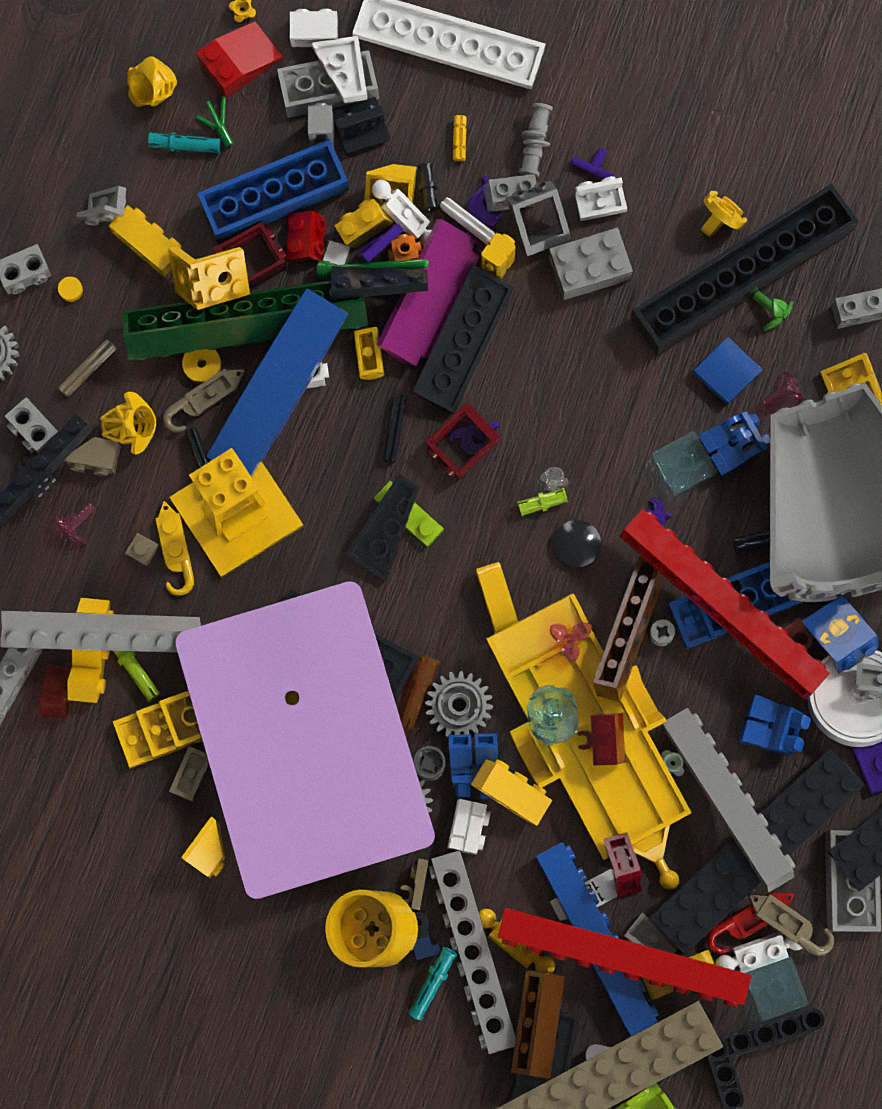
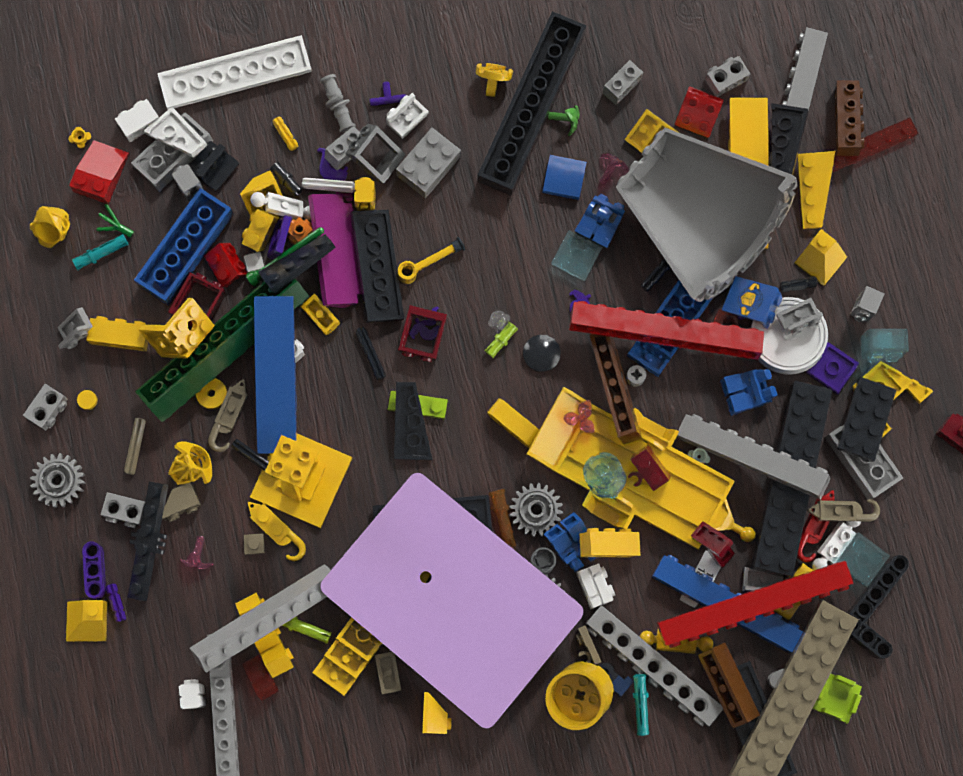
camera: 40 degrees left, 0 degrees up
(560, 371) = (455, 246): none -> yellow piece

